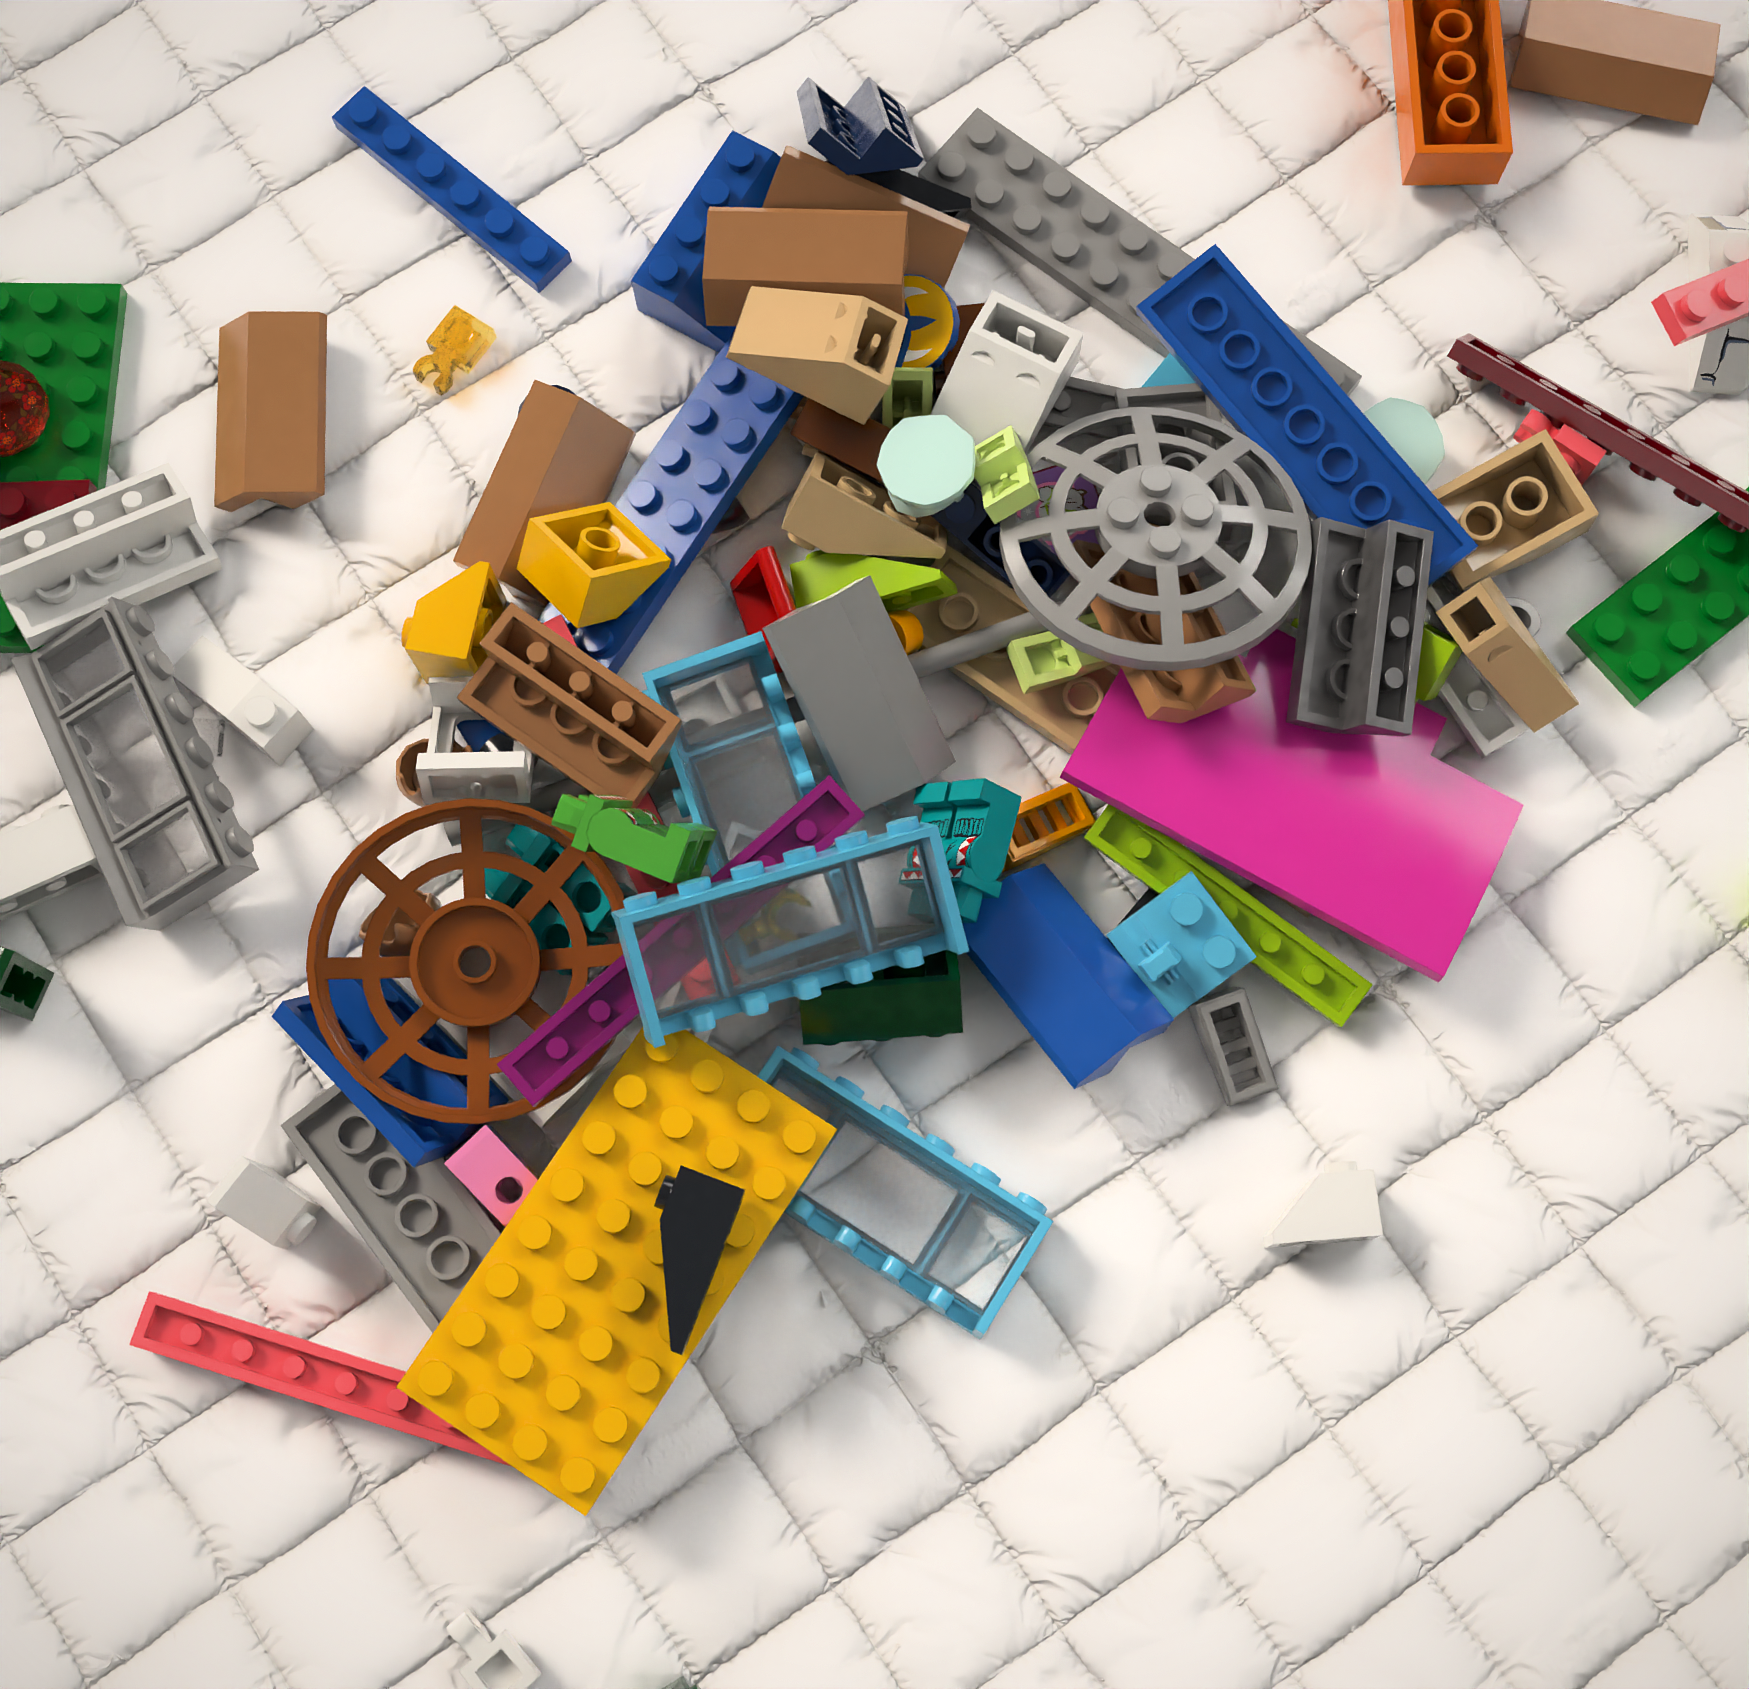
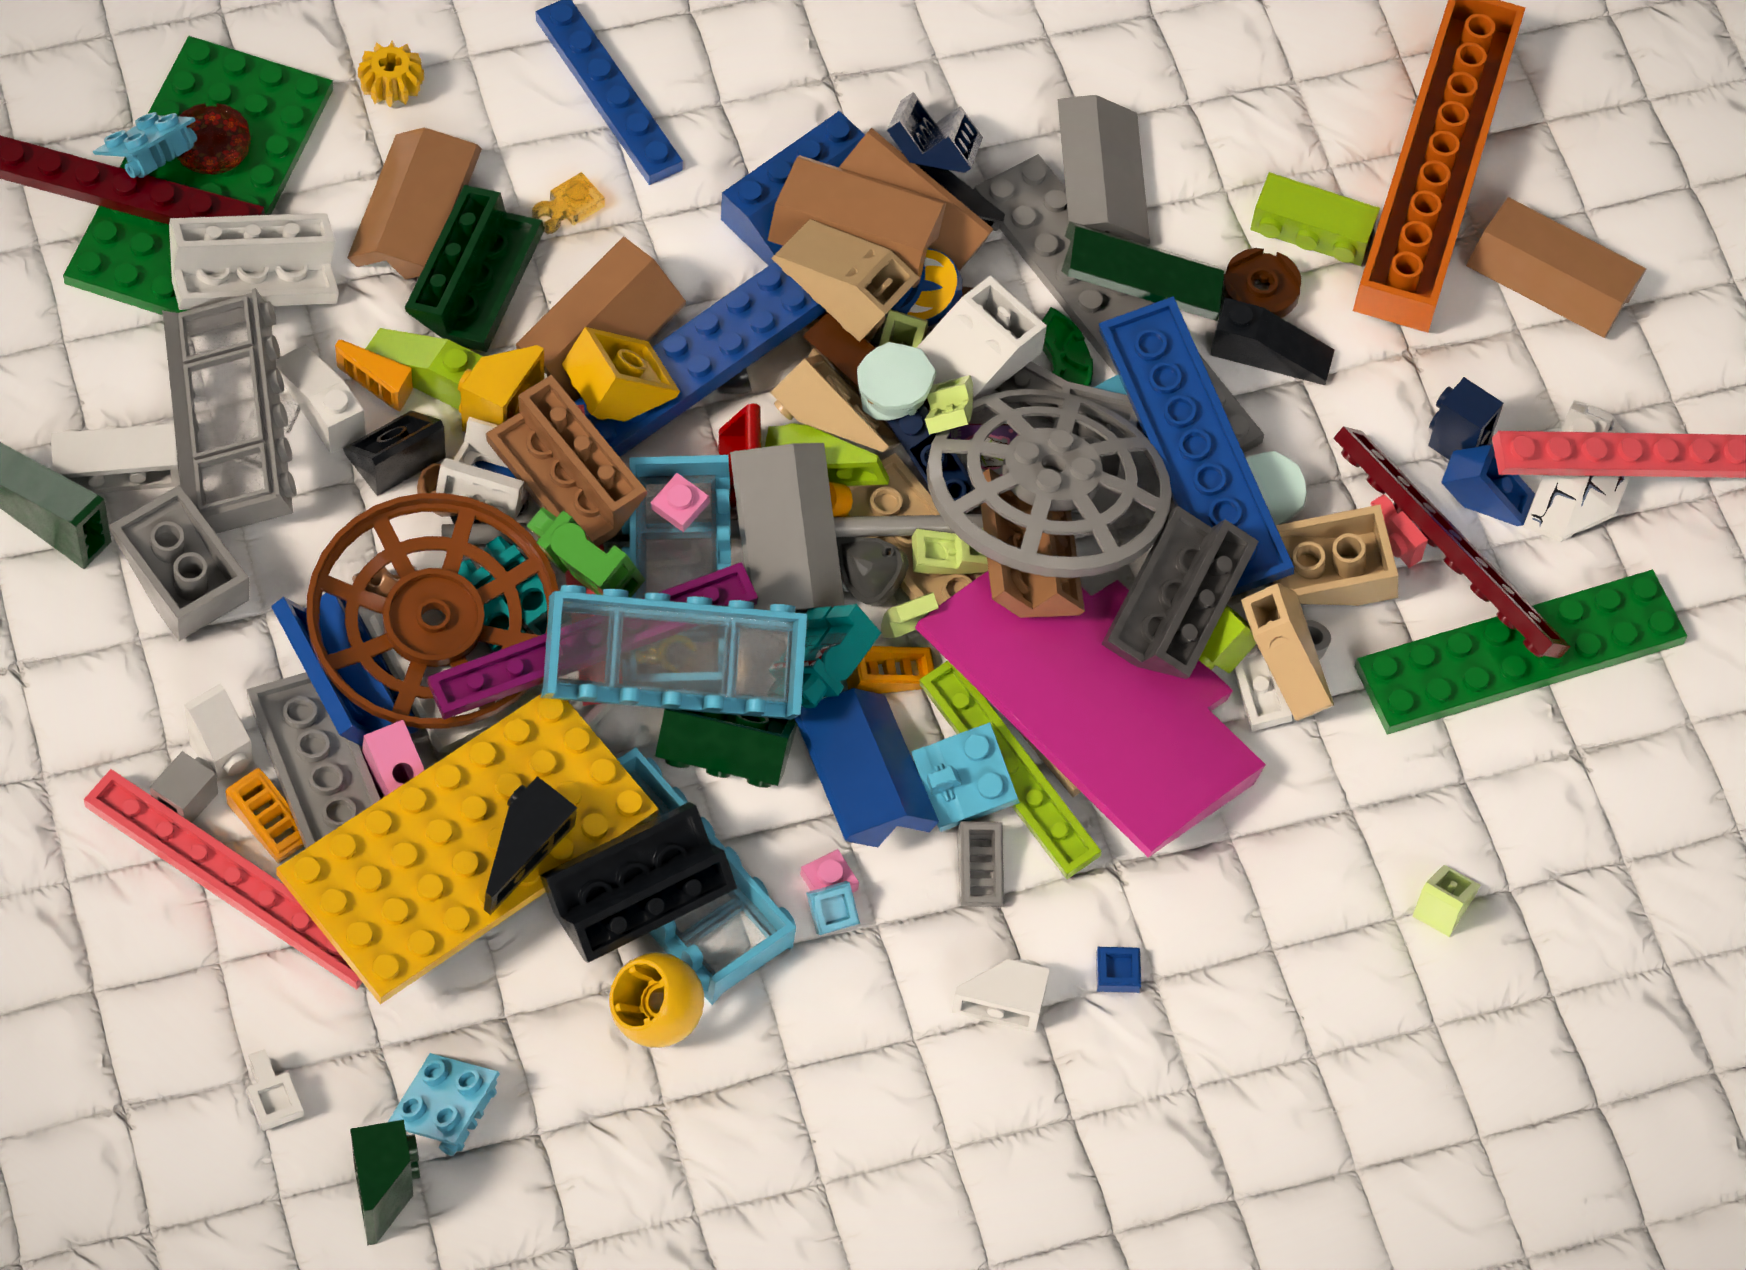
camera: 10 degrees right, 15 degrees down
(140, 988) = (181, 562): none -> light grey slope
(187, 252) = (390, 73): none -> yellow gear
(249, 1284) = (186, 786): none -> light grey brick
(306, 649) = (376, 373): none -> light orange slope
(322, 1258) = (252, 793): none -> light orange slope
(347, 614) = (434, 361): none -> lime slope
(357, 738) = (398, 450): none -> black slope
(370, 473) = (474, 269): none -> dark green slope
(705, 1596) = (446, 1101): none -> medium azure hinge
(724, 714) = (680, 502): none -> bright pink plate
(846, 1239) = (637, 882): none -> black slope
(920, 1381) = (656, 1000): none -> yellow wheel
(971, 708) = (869, 570): none -> dark grey piece
(1044, 758) = (905, 616): none -> yellowish green slope
(1060, 103) = (1103, 166): none -> light grey slope
(1061, 1125) = (828, 871): none -> bright pink plate
(1082, 1167) = (833, 908): none -> medium azure tile
(1103, 350) = (1067, 349): none -> green tile
(1157, 218) = (1143, 270): none -> dark green slope
(1283, 212) = (1255, 265): none -> reddish brown plate
(1322, 85) = (1314, 219): none -> lime brick
(1325, 258) = (1268, 342): none -> black slope
(1440, 1125) = (1118, 969): none -> blue tile
(1593, 287) = (1464, 418): none -> dark blue brick
(1638, 354) = (1477, 486): none -> blue slope

